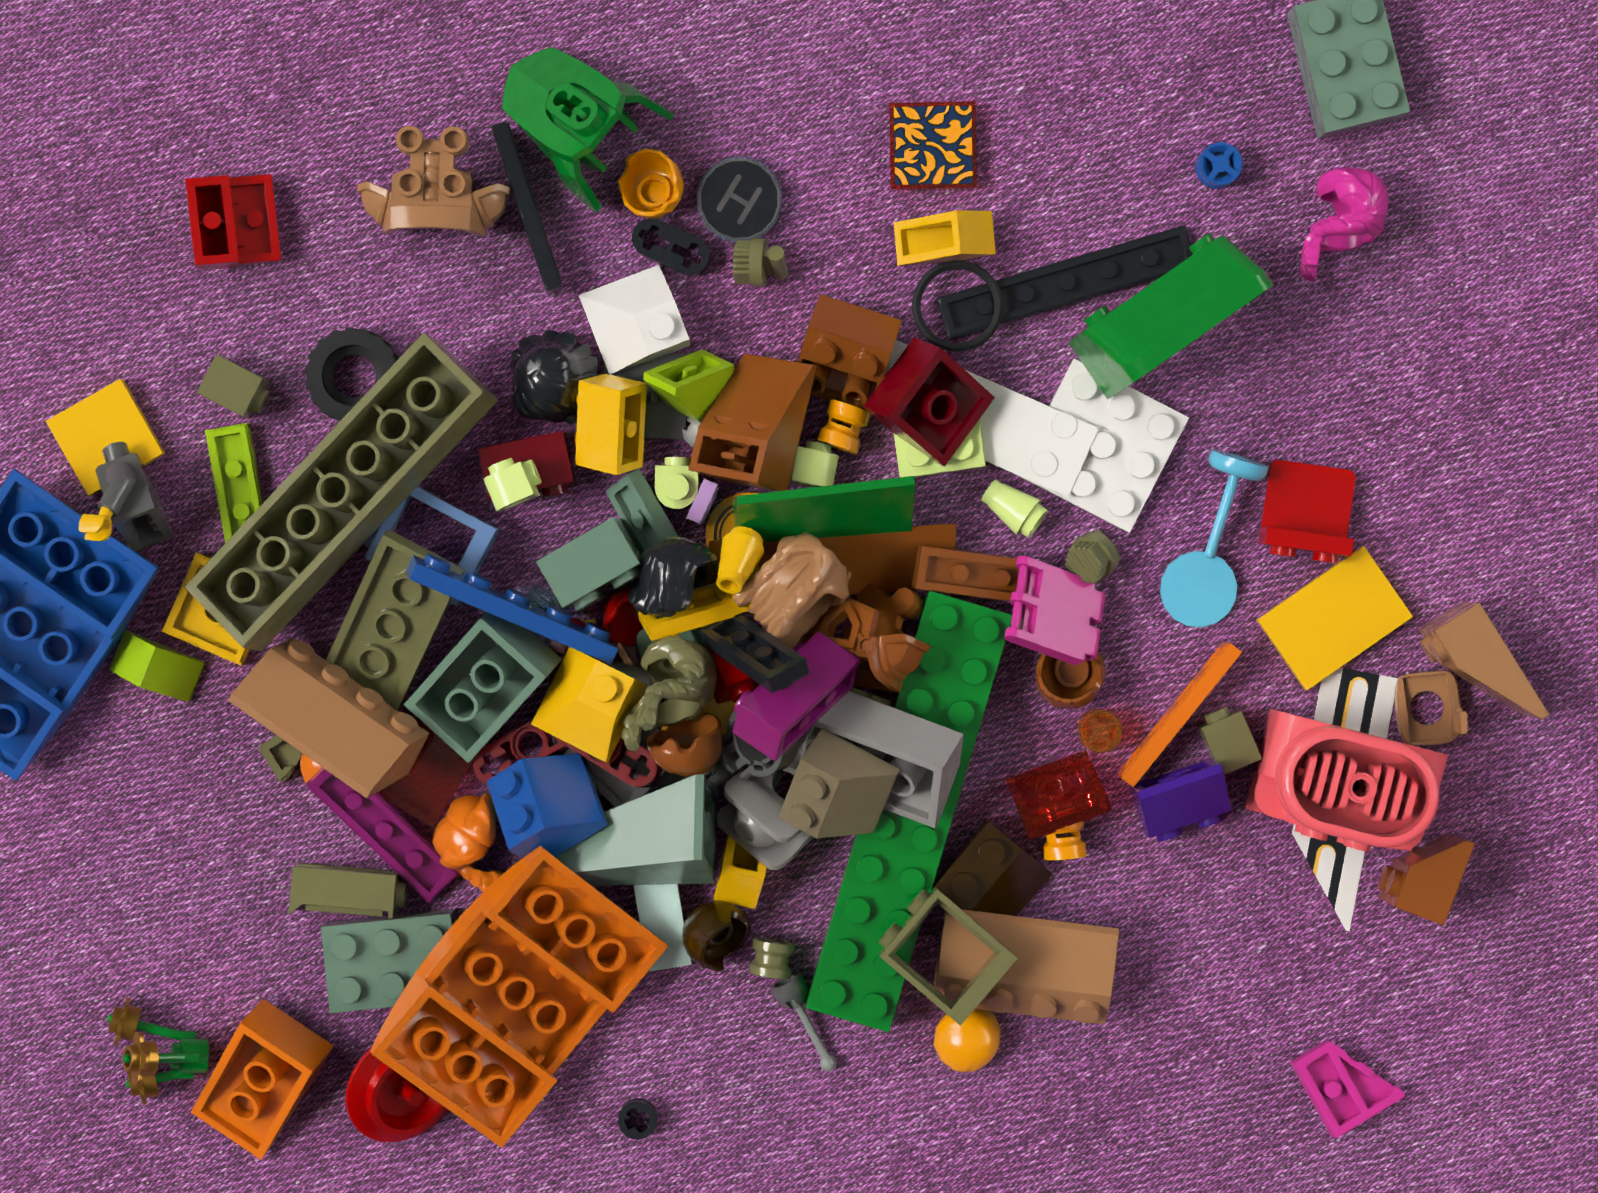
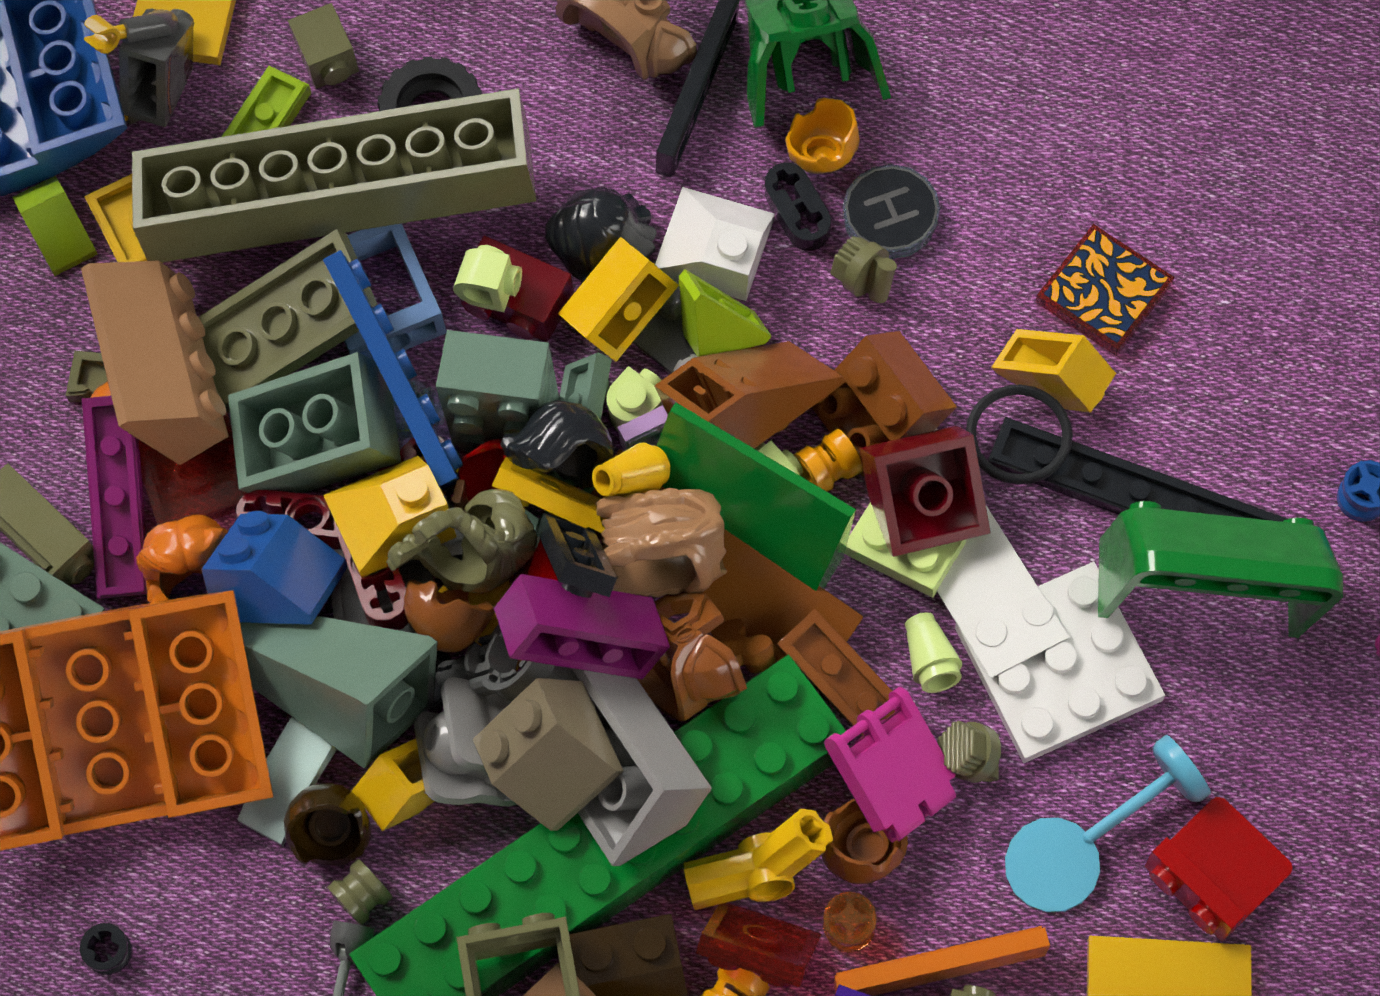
camera: 45 degrees right, 20 degrees down
(1015, 742) = (761, 864): none -> yellow piece

